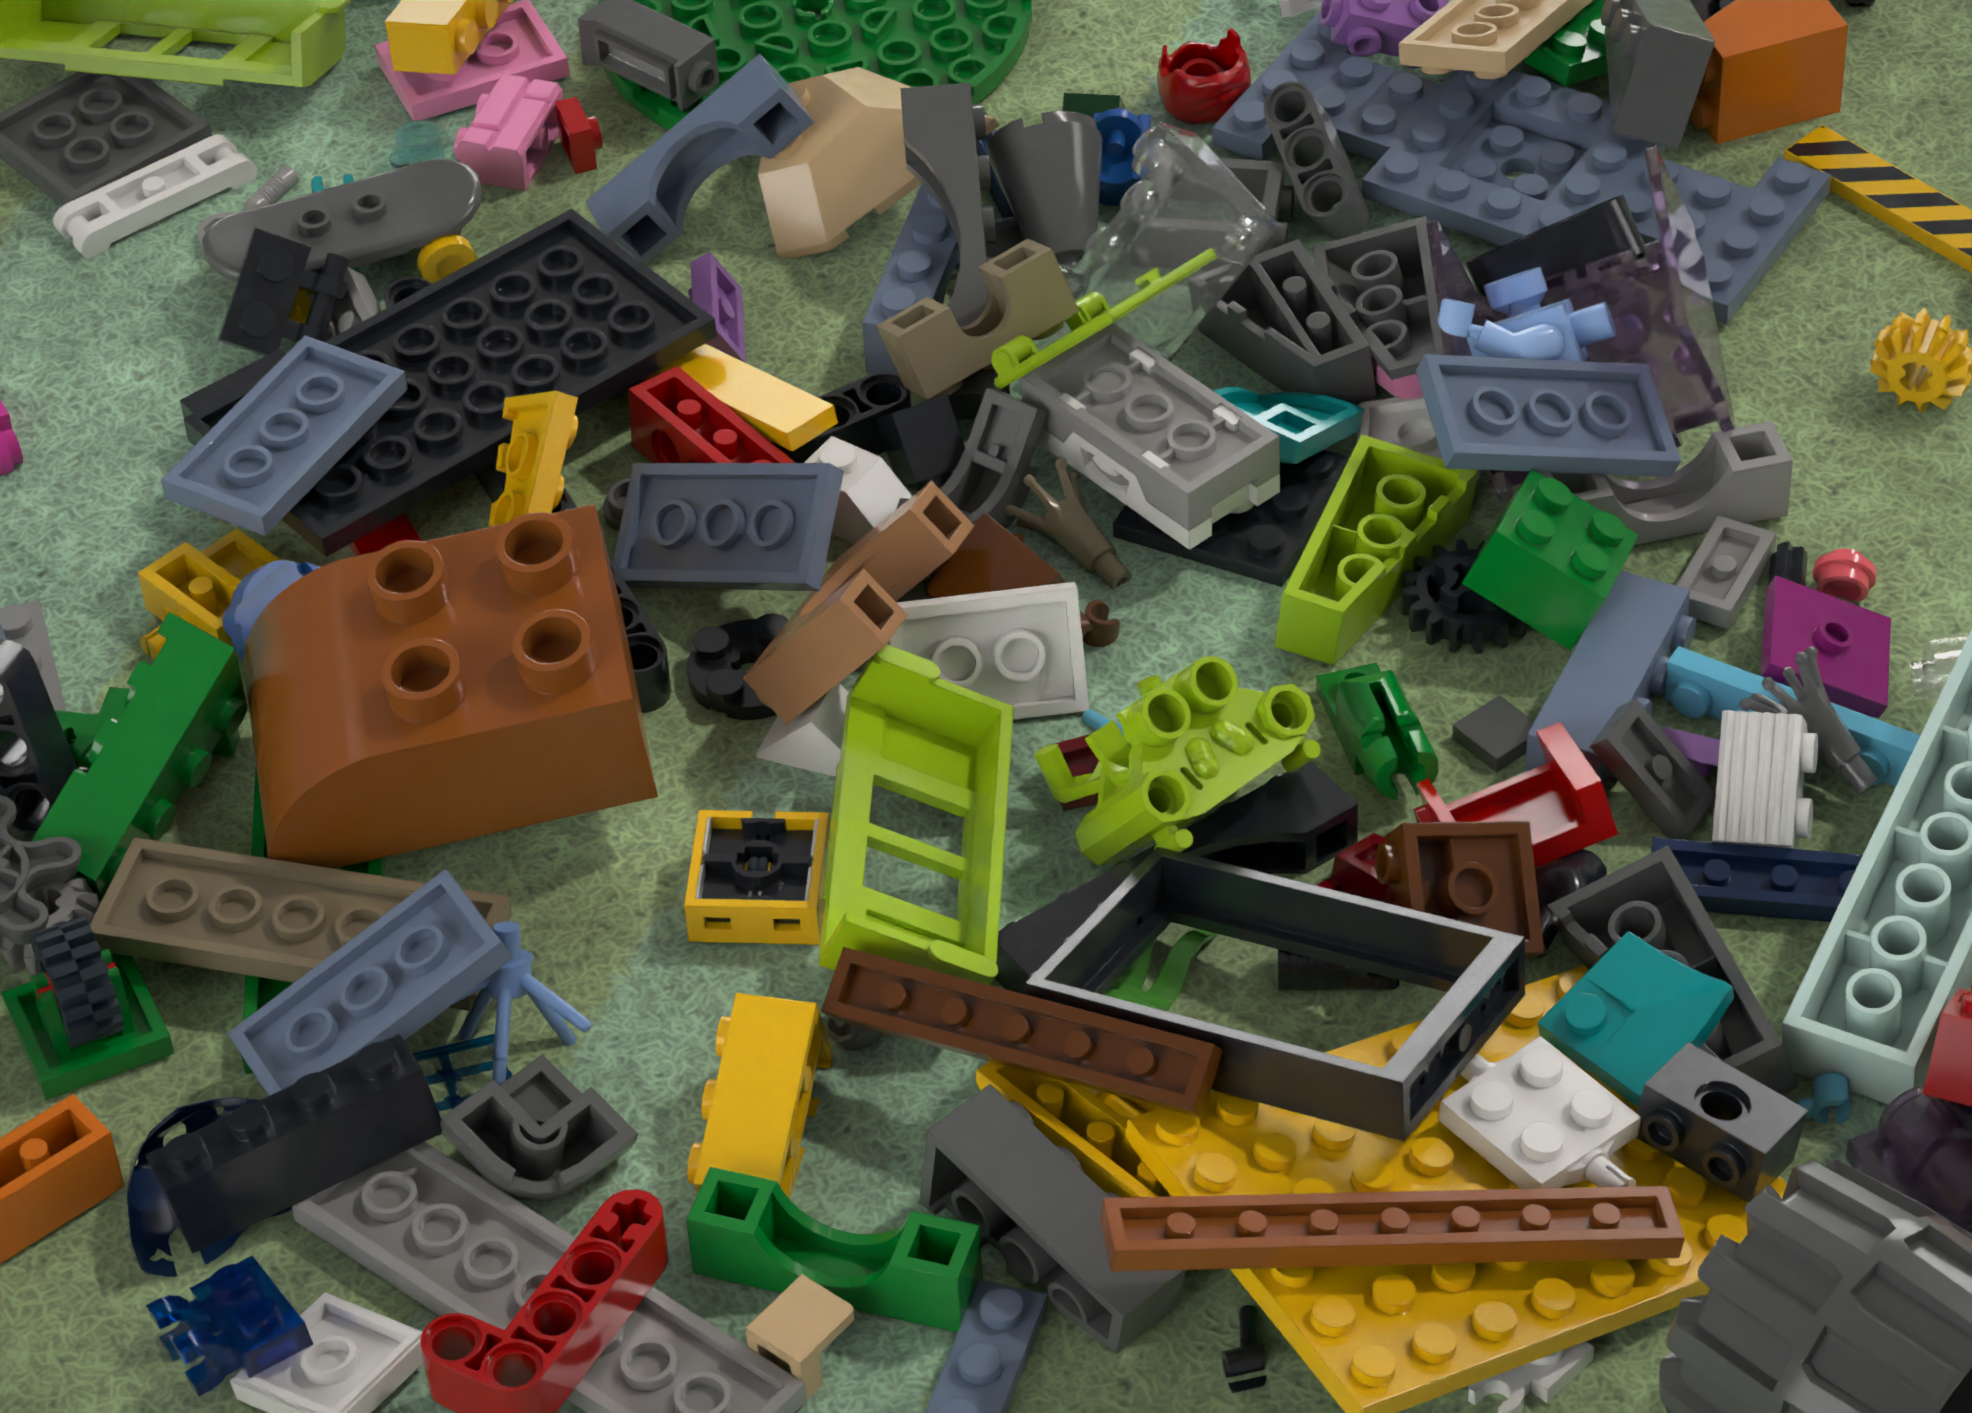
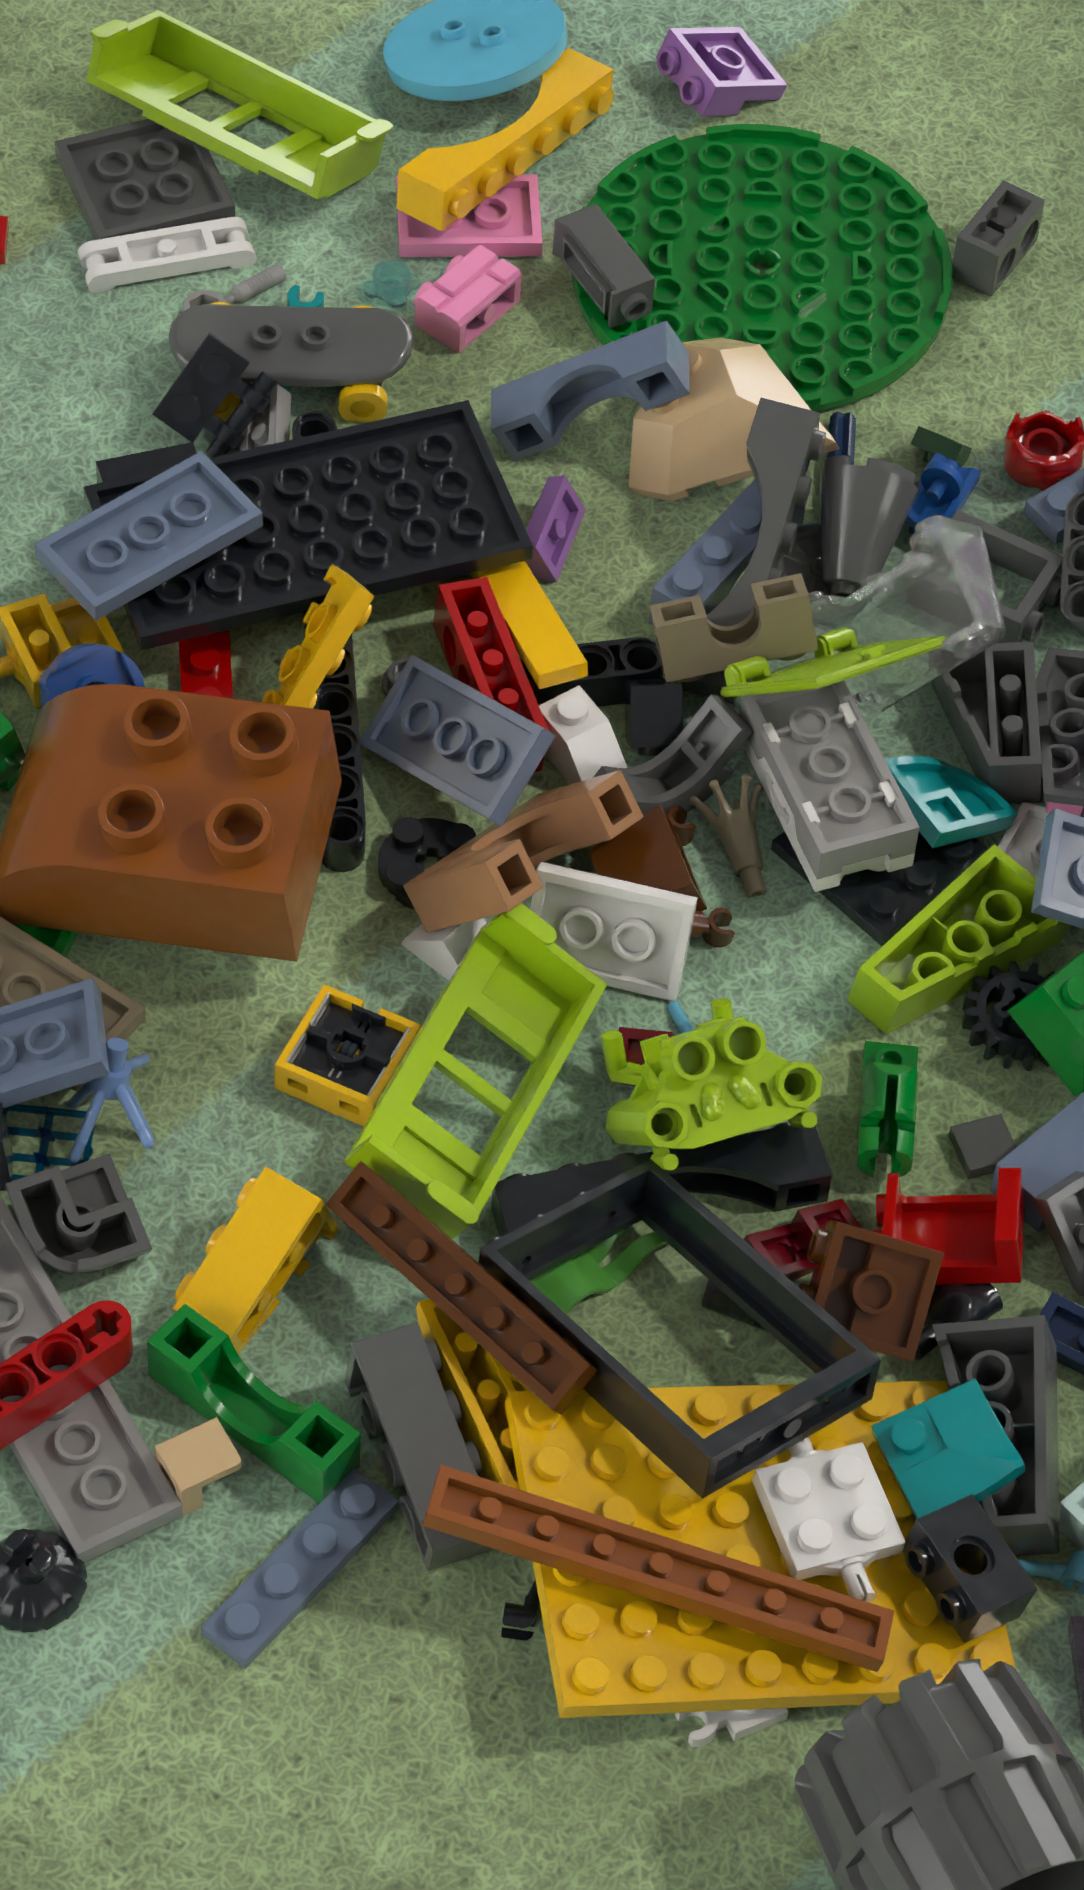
camera: 15 degrees right, 10 degrees up
(578, 134) = (520, 320): red plate -> none

